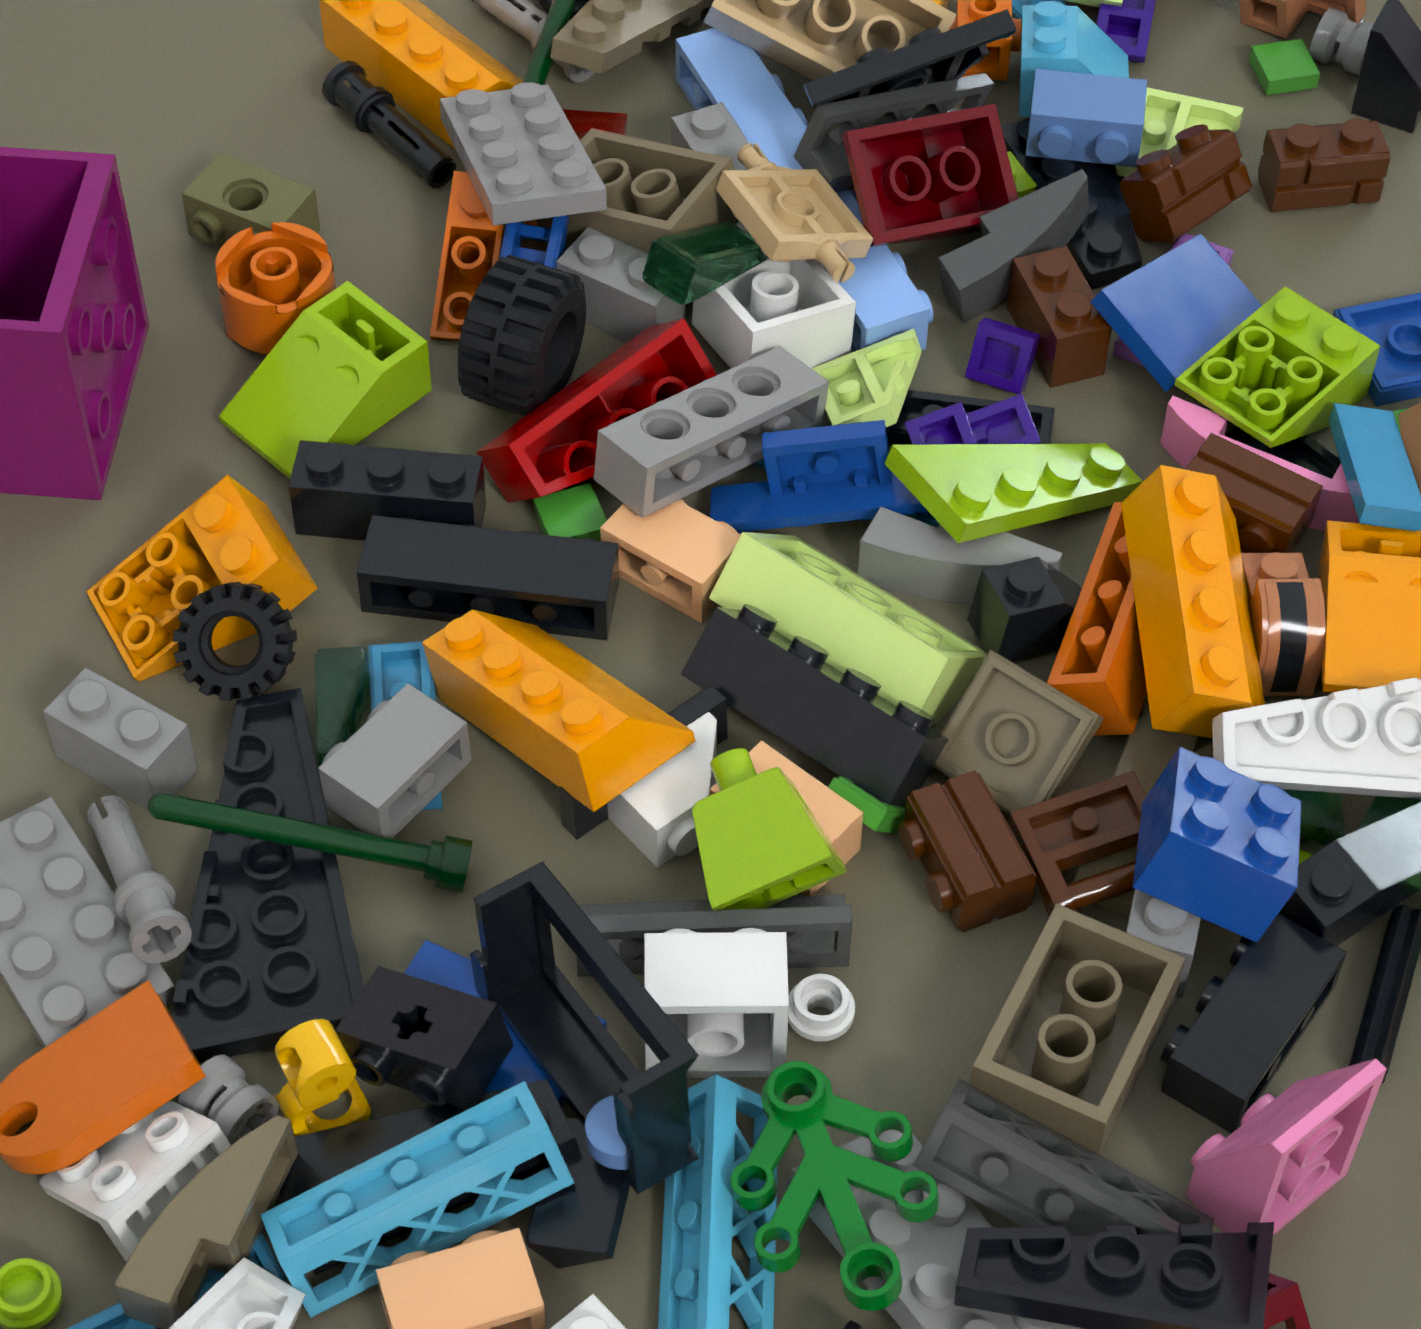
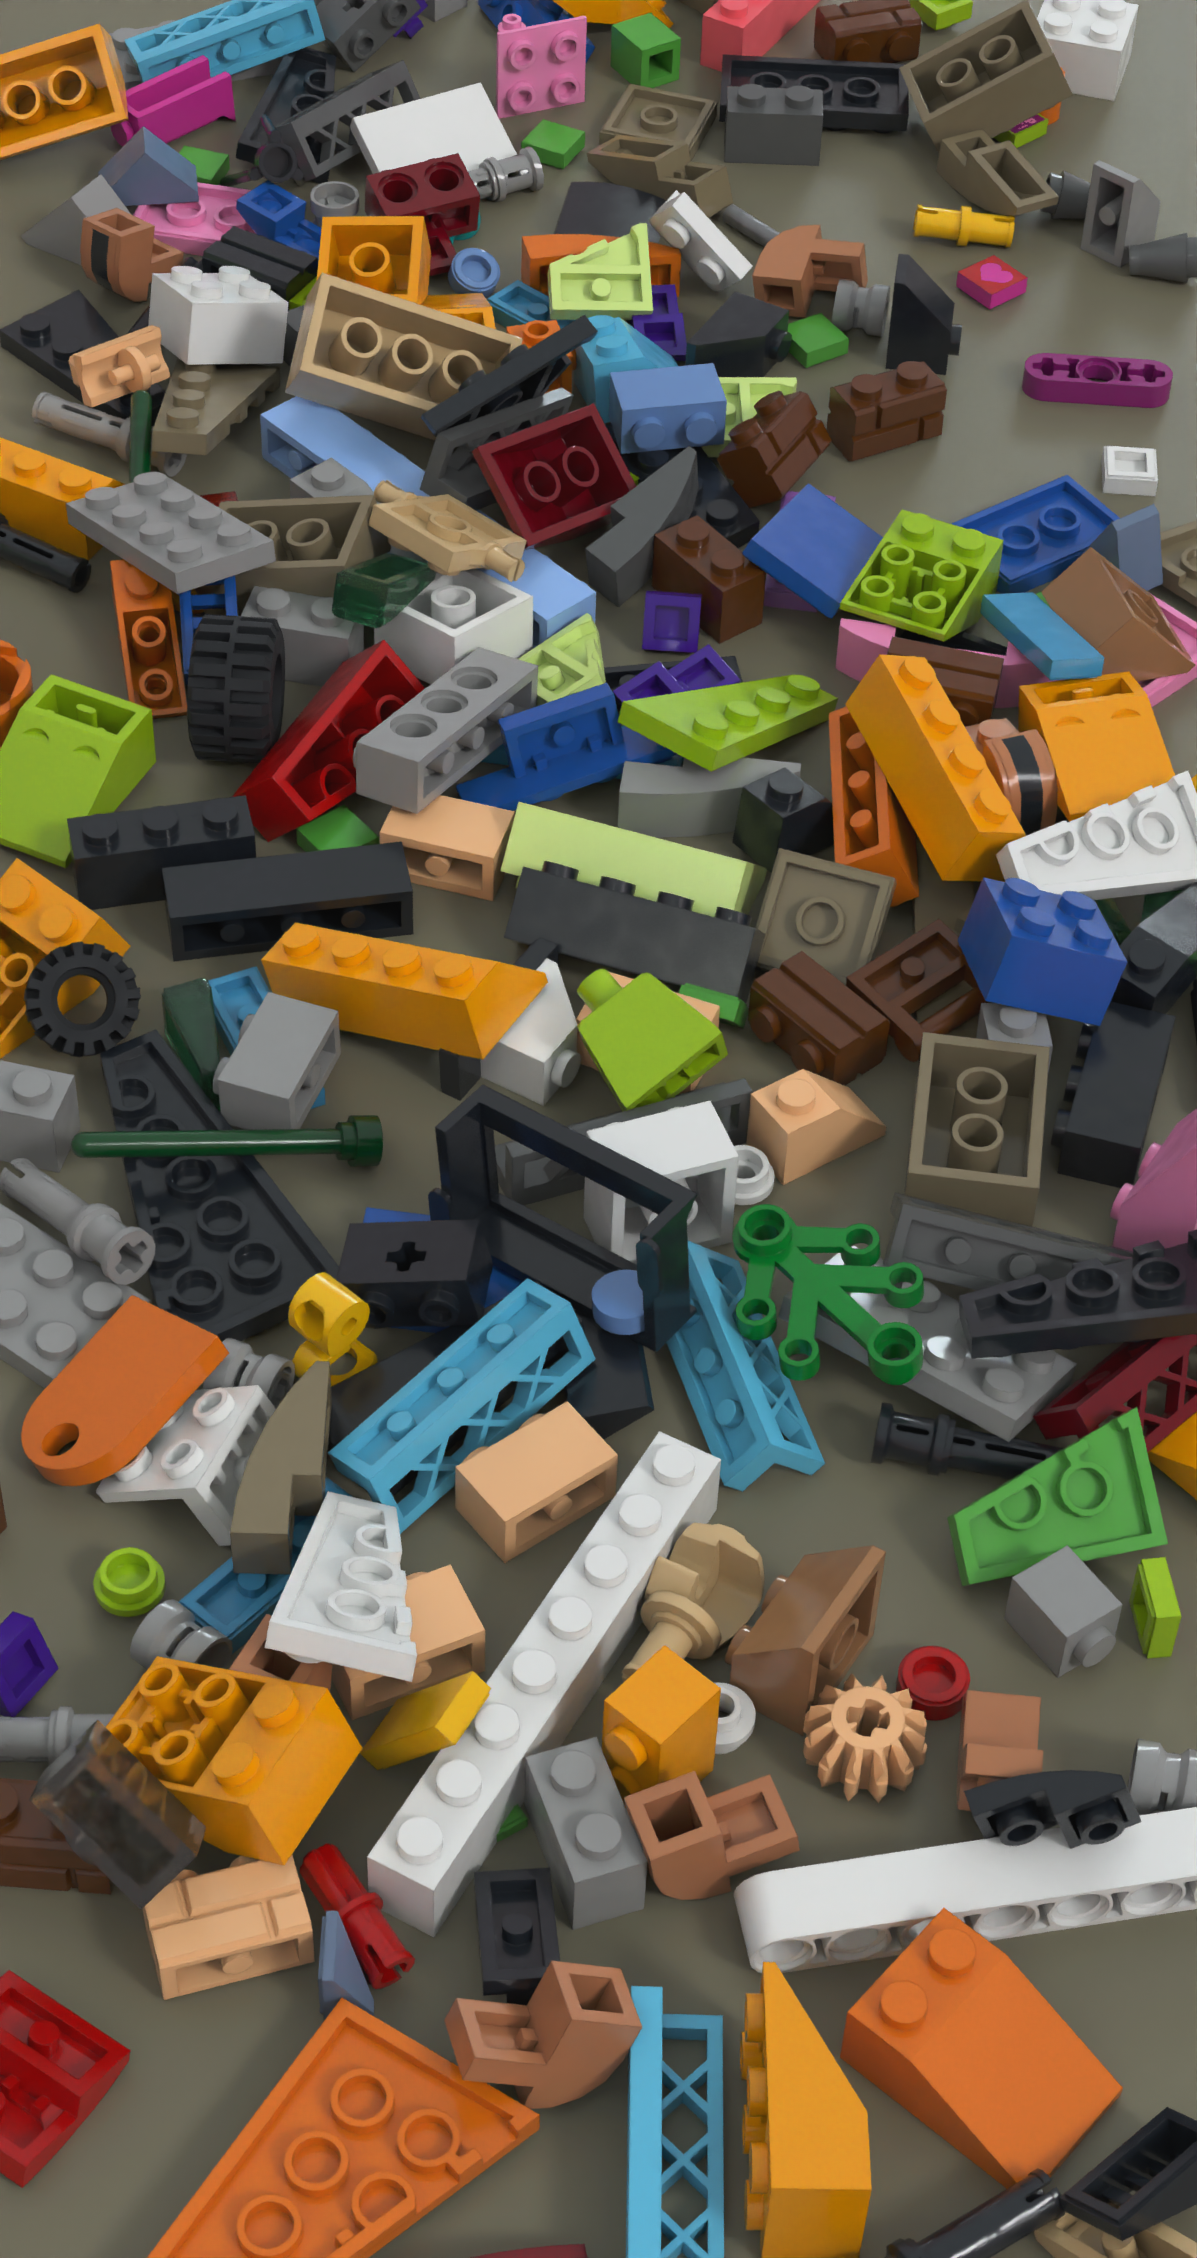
camera: 20 degrees left, 5 degrees down
(914, 966) = (808, 1123): none -> light nougat slope
(1200, 54) = (742, 338): none -> black slope

